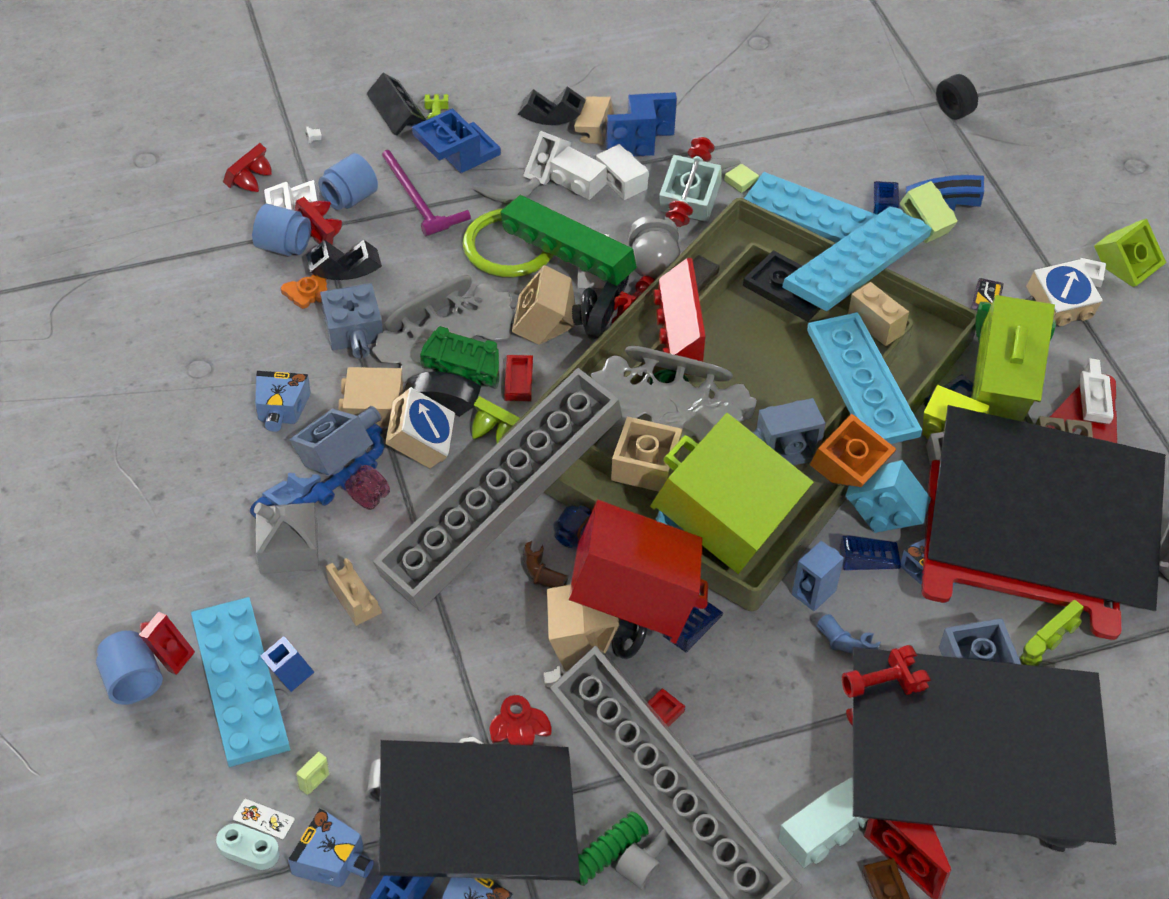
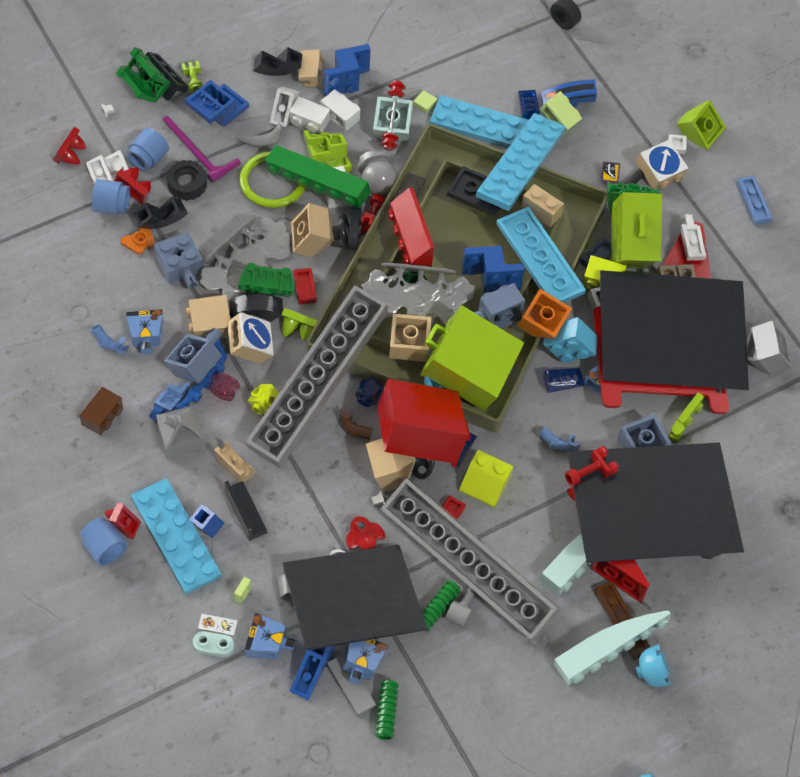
camera: 15 degrees left, 10 degrees up
(185, 493) = (101, 411): none -> reddish brown brick
(221, 406) = (107, 342): none -> medium blue piece
(351, 661) = (245, 510): none -> black panel
(363, 109) = (138, 82): none -> green piece
(392, 212) = (187, 192): none -> black tyre
(414, 506) = (262, 398): none -> neon yellow brick
(595, 212) = (328, 149): none -> lime slope
(724, 672) = (486, 478): none -> neon yellow slope
(782, 373) = (490, 264): none -> blue bracket
(817, 575) = (534, 402): medium blue brick -> none

